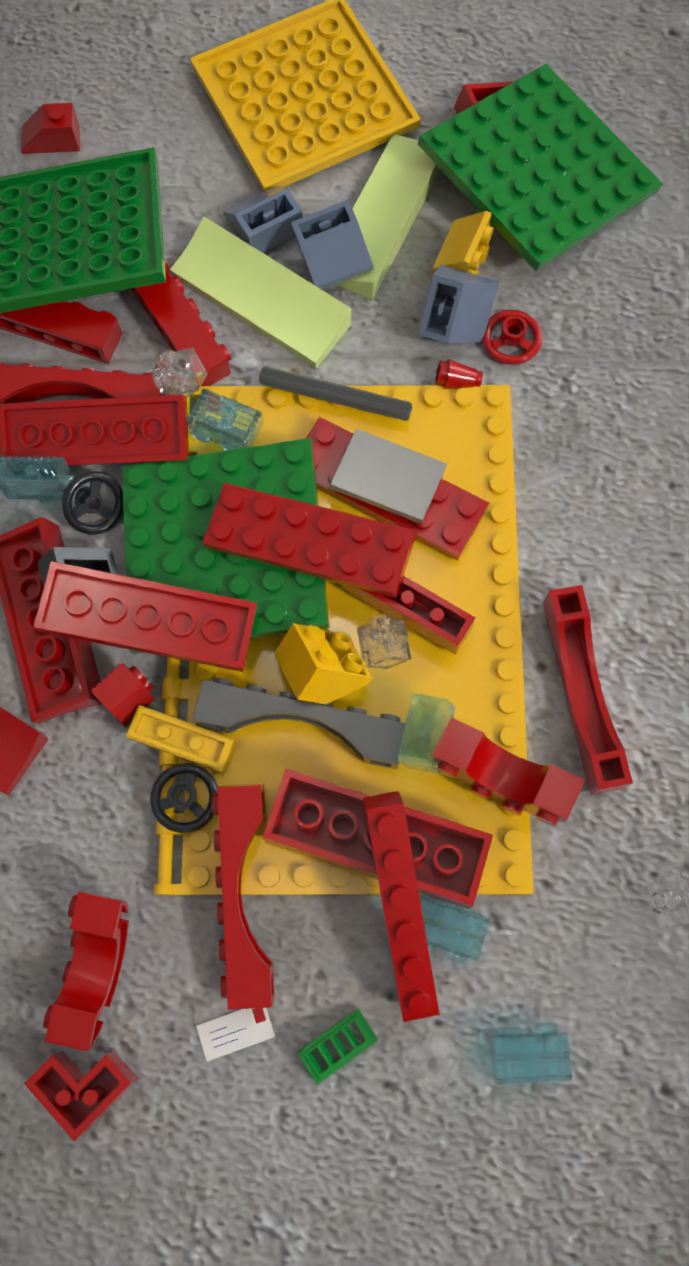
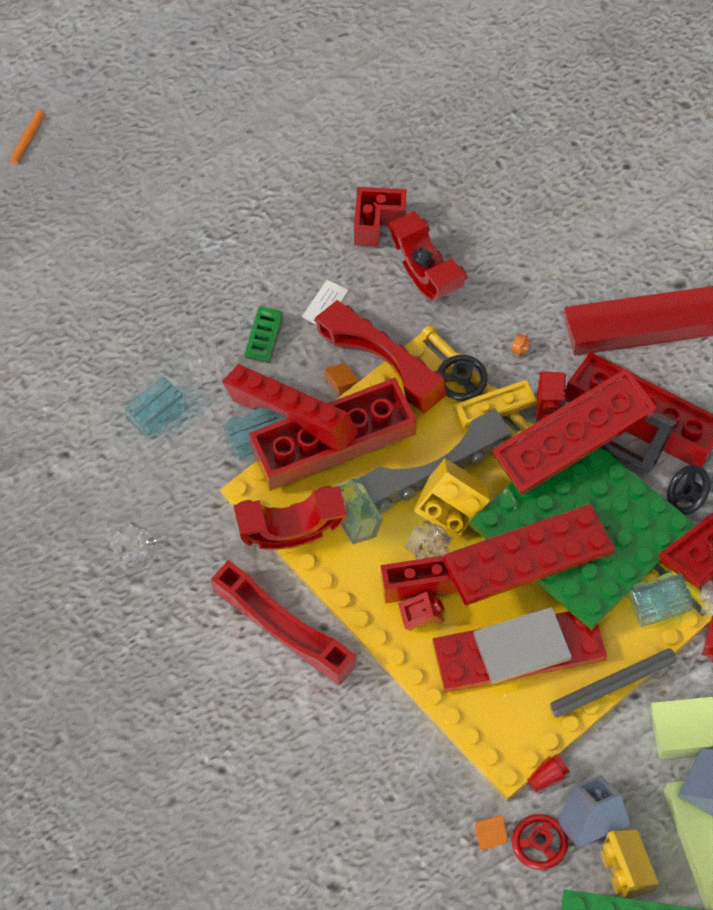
camera: 140 degrees right, 10 degrees down
(89, 790) = (520, 344): none -> orange plate
(93, 970) = (422, 257): none -> black plate
(300, 917) = (340, 378): none -> orange slope
(449, 585) = (421, 610): none -> red bracket
(547, 374) = (490, 832): none -> orange slope

